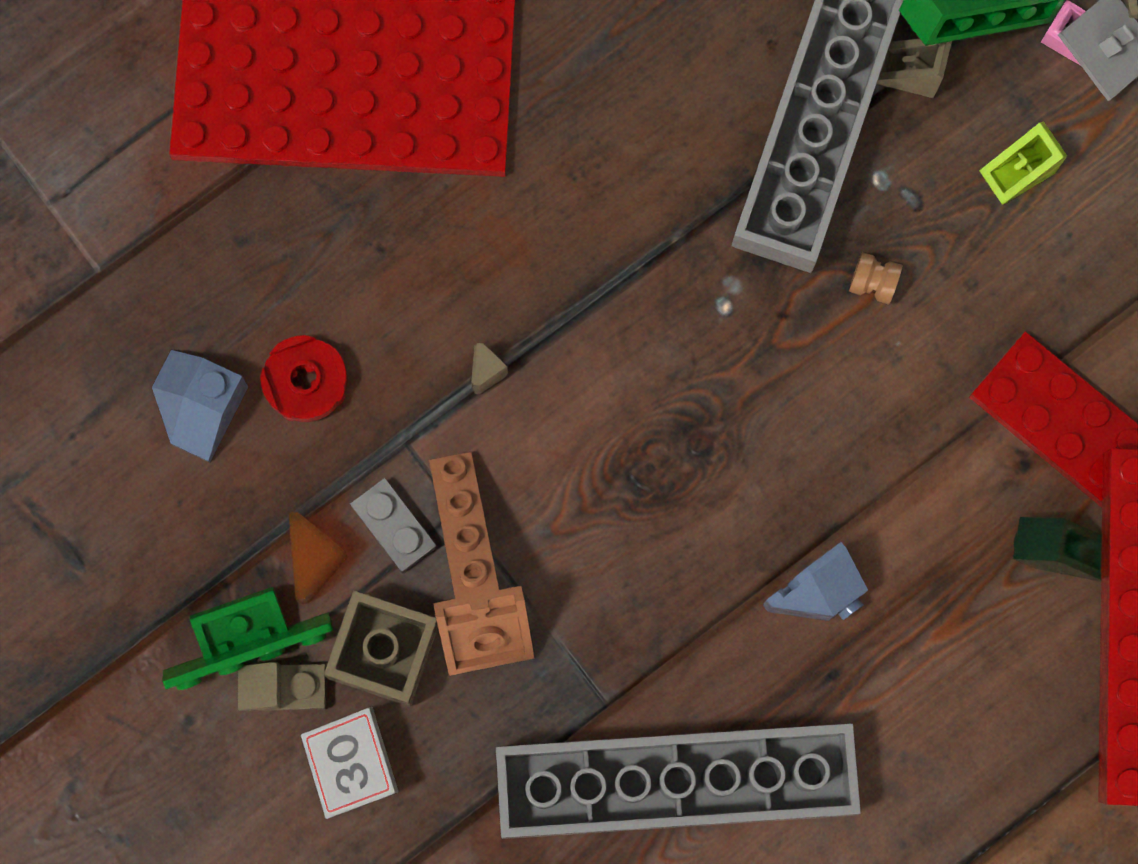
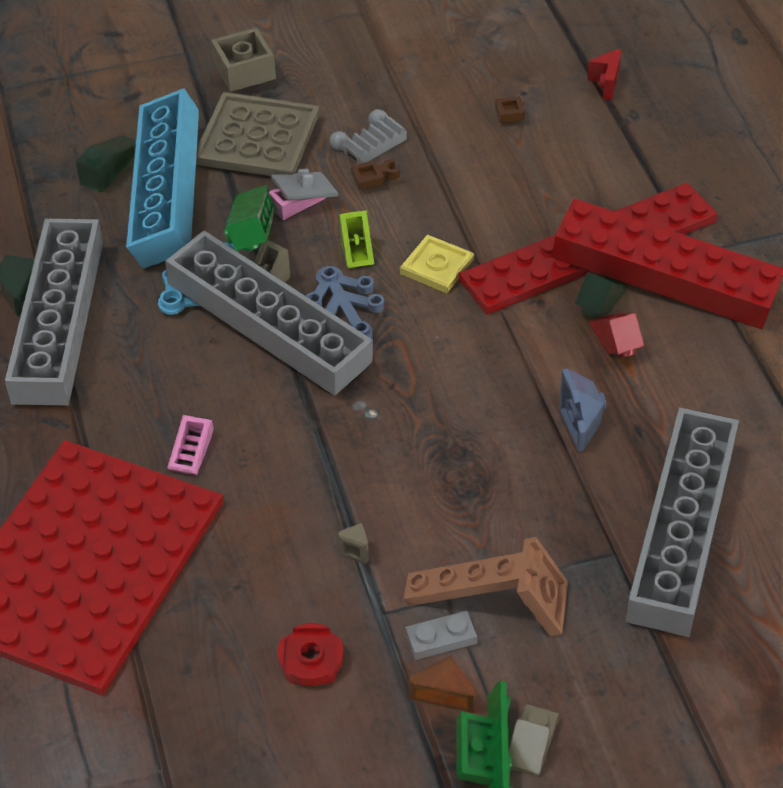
camera: 65 degrees left, 30 degrees down
(197, 402) = (294, 726): sand blue slope -> none
(349, 763) = (605, 706): light grey piece -> none
(381, 648) = (530, 657): dark tan brick -> none
(583, 79) = (187, 425): none -> bright pink slope
(876, 278) = (395, 326): medium nougat wheel -> none
(908, 187) = (332, 279): none -> sand blue plant
(992, 594) = (618, 333): none -> slope
(1038, 292) = (436, 263): none -> light yellow tile

